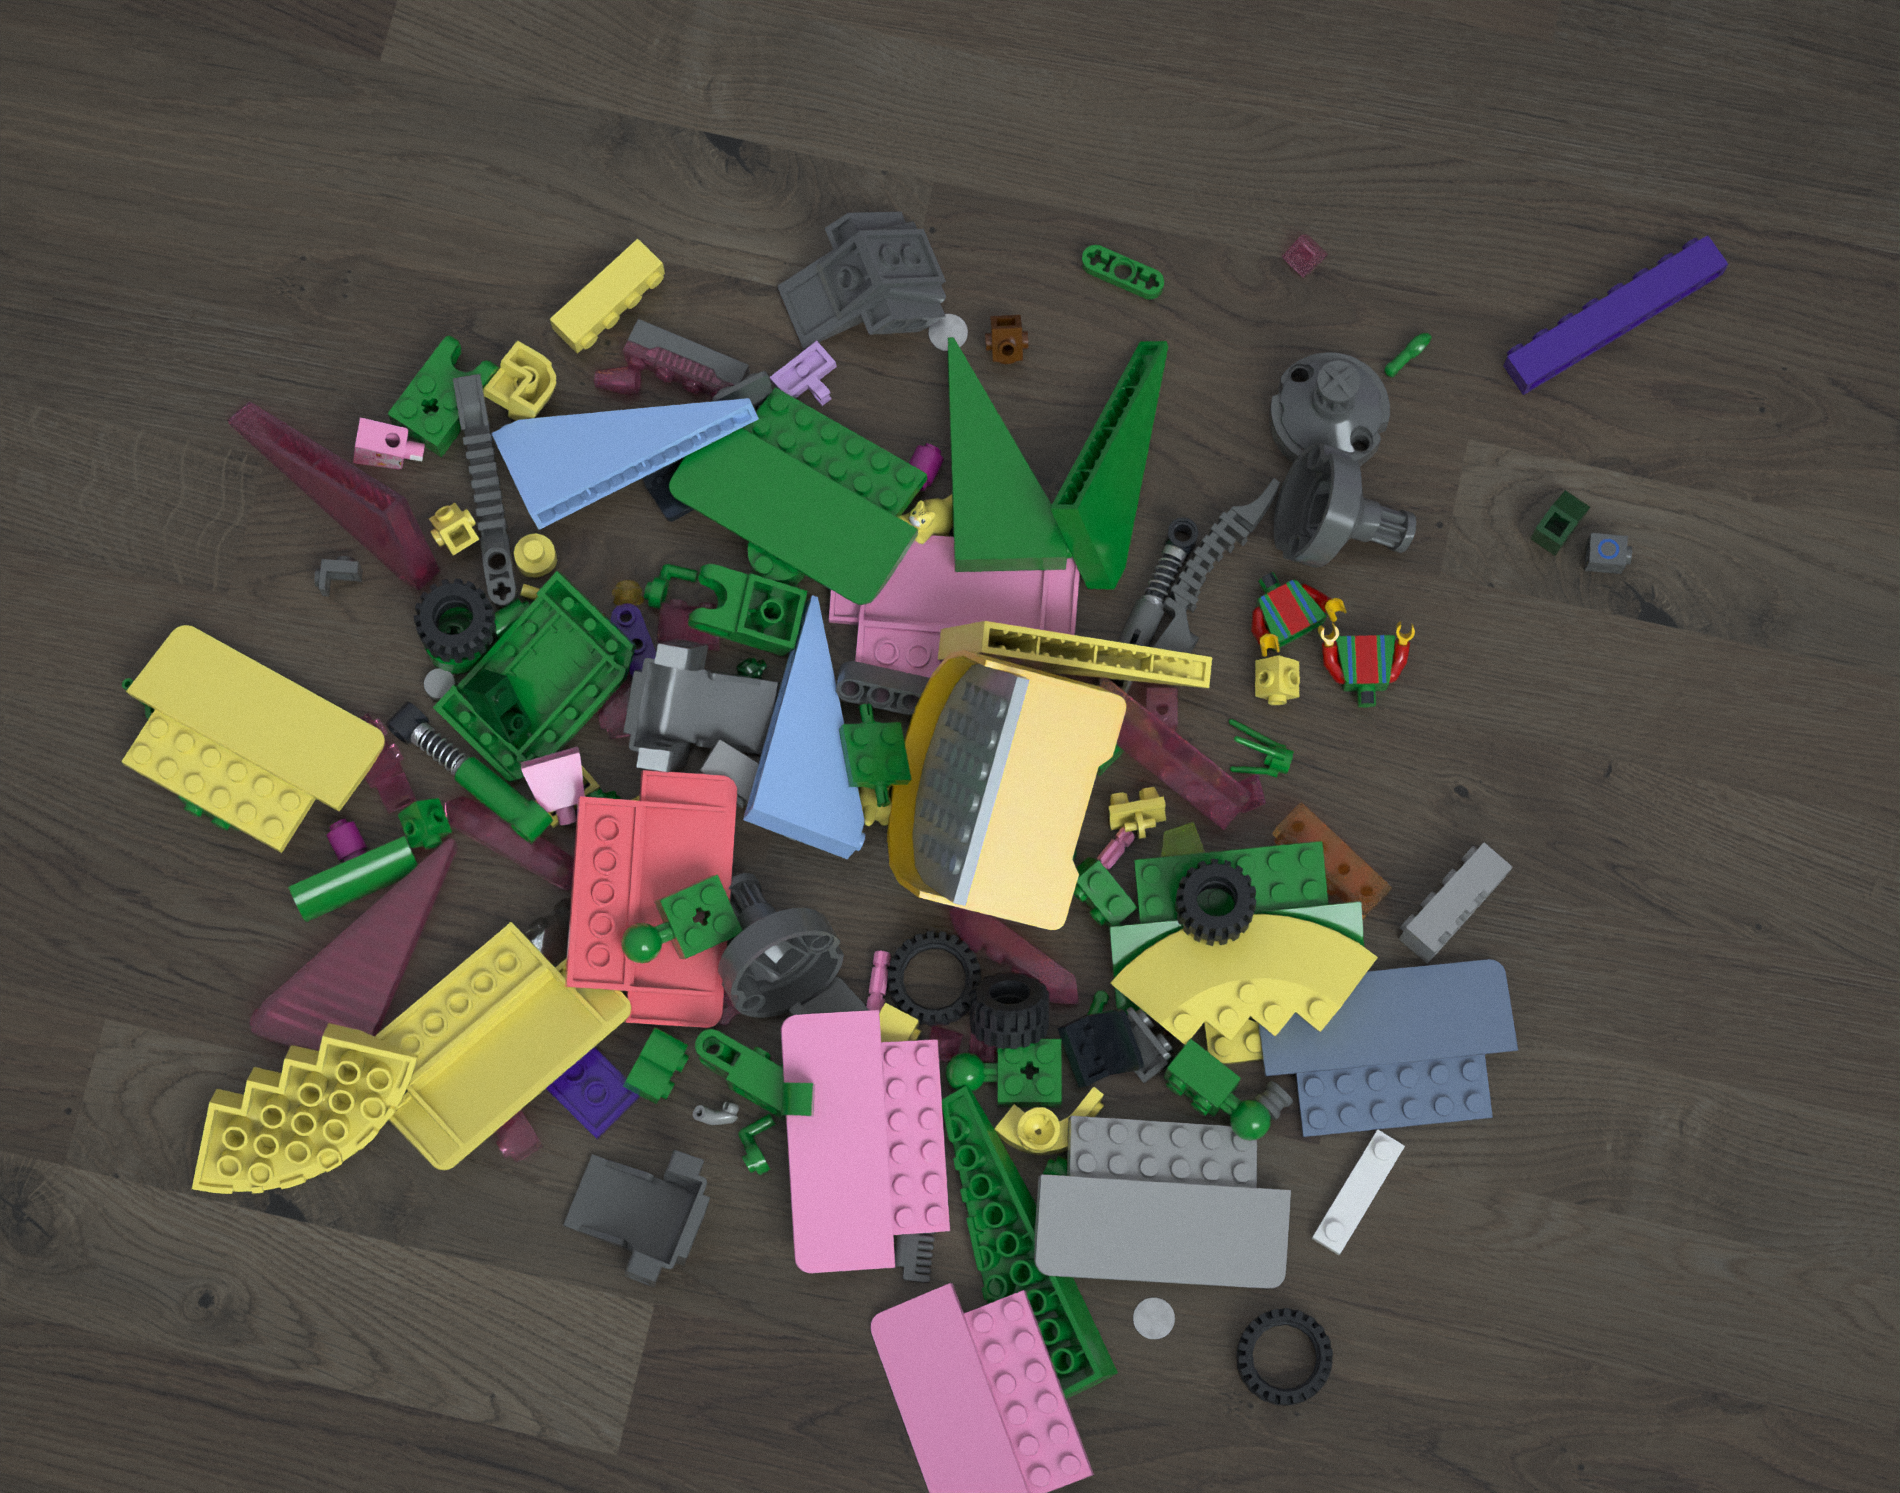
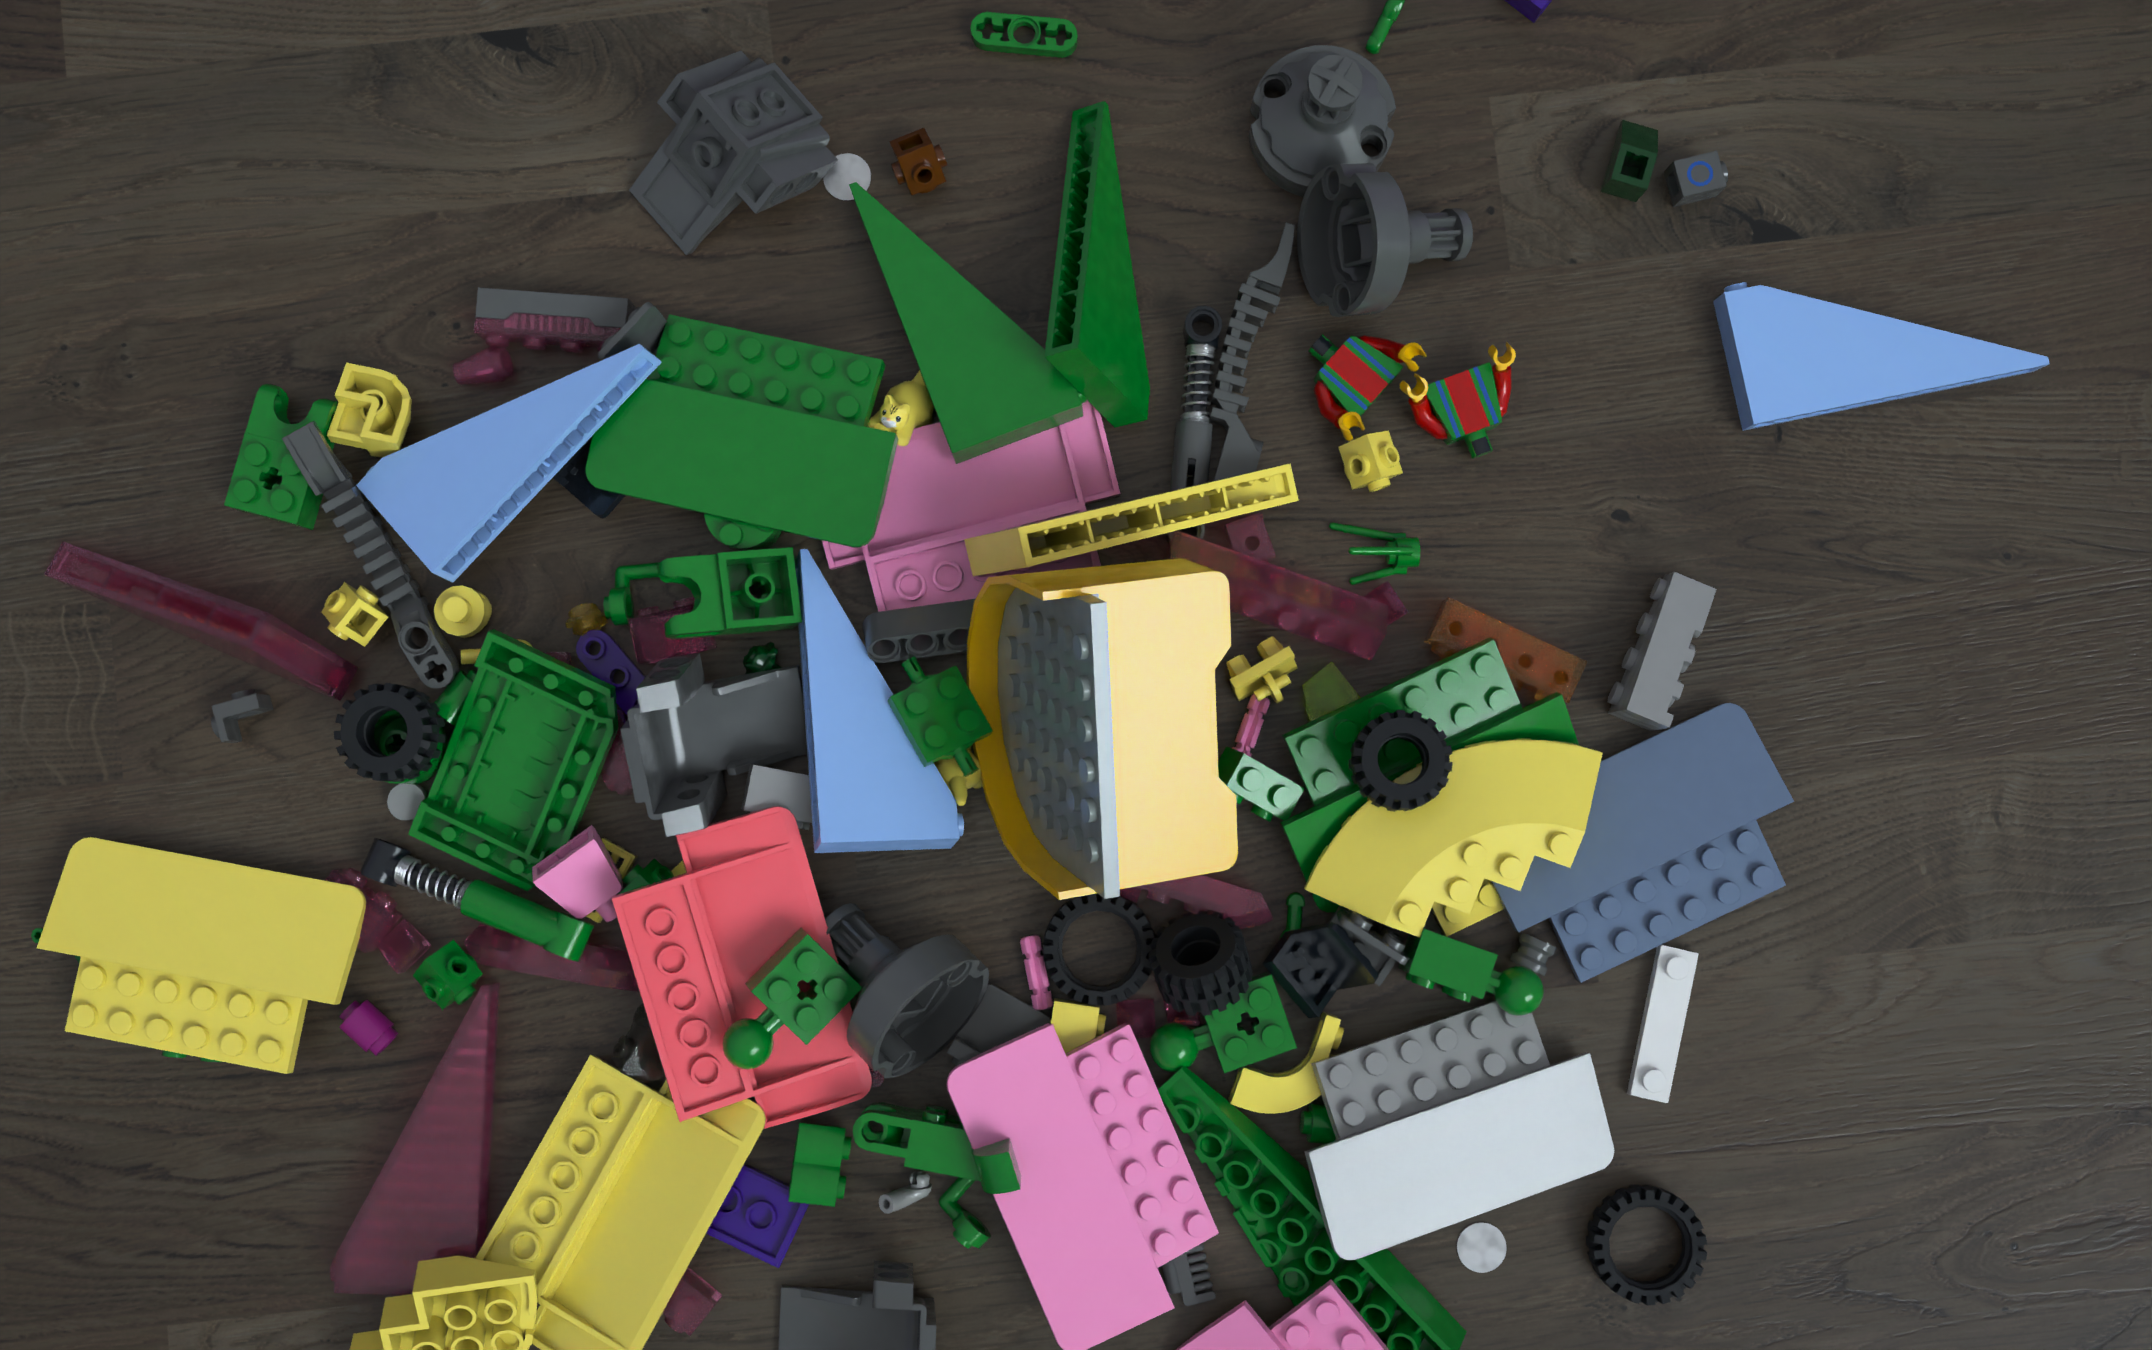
camera: 15 degrees left, 10 degrees up
(353, 879) = (390, 1068): green brick -> none
(374, 445) = (220, 542): bright pink torso -> none
(497, 704) = (479, 809): dark green slope -> none
(608, 296) = (434, 271): light yellow brick -> none
(805, 373) = (698, 284): lavender plate -> none
(927, 459) = (877, 342): magenta brick -> none
(1038, 1130) = (1284, 1096): light yellow piece -> none
(1657, 722) = (1816, 357): none -> light blue slope

